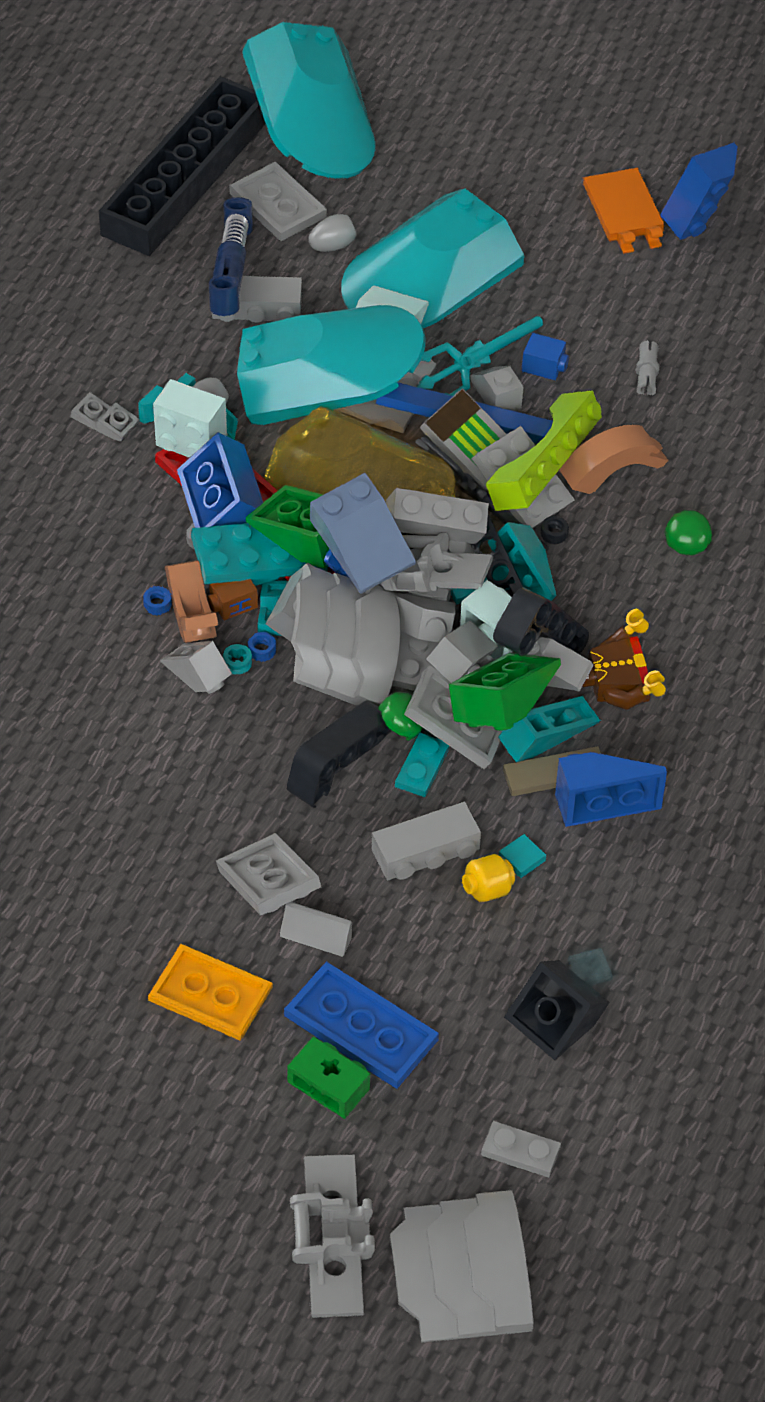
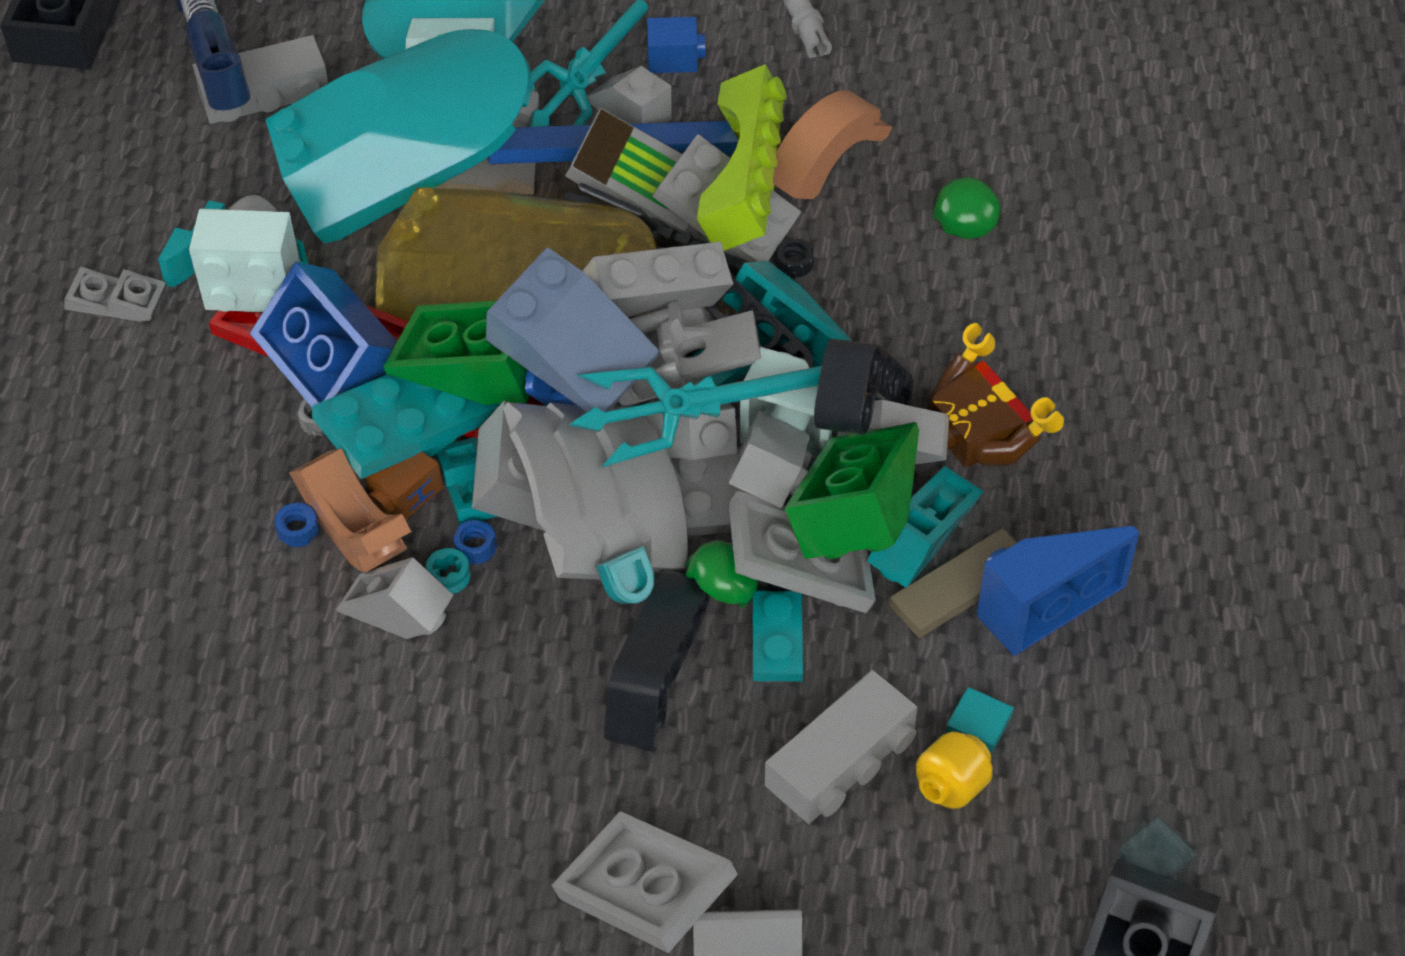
camera: 20 degrees left, 0 degrees up
(339, 696) = (627, 576): none -> teal tile
(417, 598) = (686, 402): none -> teal piece

